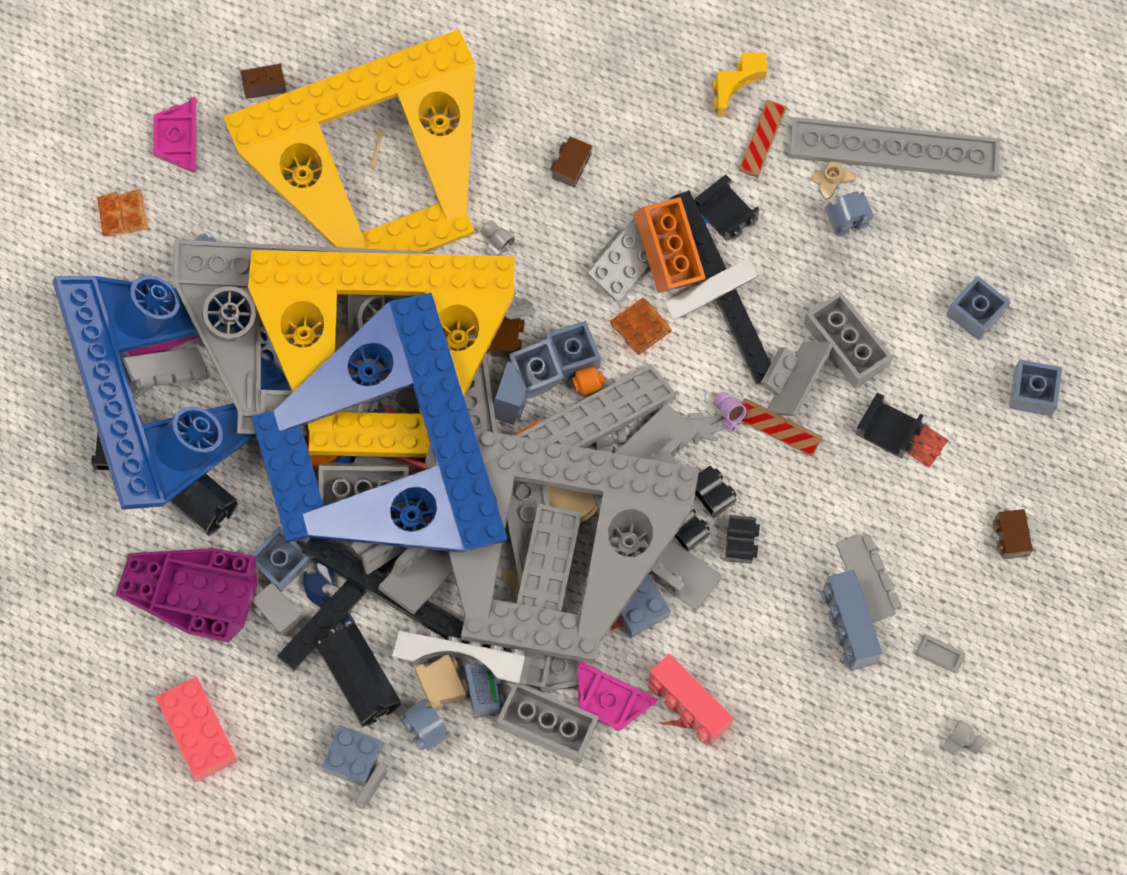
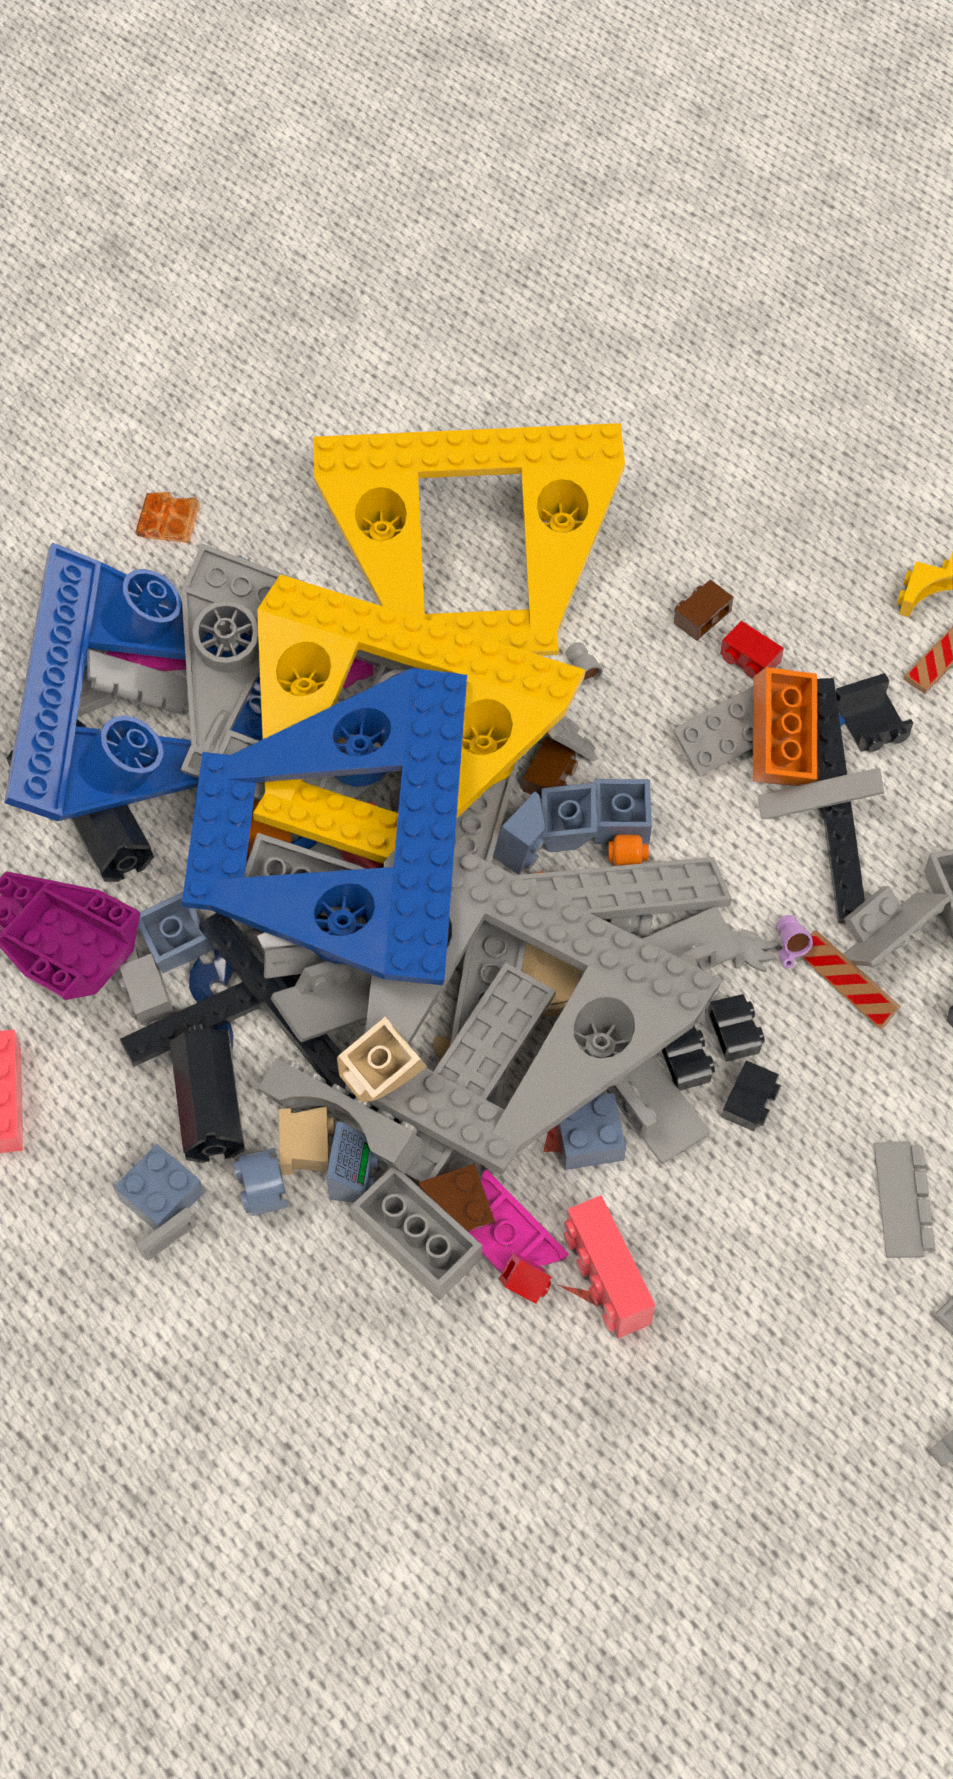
camera: 25 degrees right, 10 degrees down
(177, 135) = (262, 457): dark pink wing -> none
(263, 81) = (380, 421): reddish brown brick -> none
(380, 133) = (492, 520): tan hinge -> none
(481, 614) = (378, 1062): none -> tan slope
(571, 687) = (461, 1196): none -> reddish brown wing
(620, 185) = (750, 649): none -> red brick
(635, 728) = (525, 1278): none -> red brick
(640, 326) = (717, 811): clear orange slope -> none
(851, 620) = (859, 1241): sand blue brick -> none

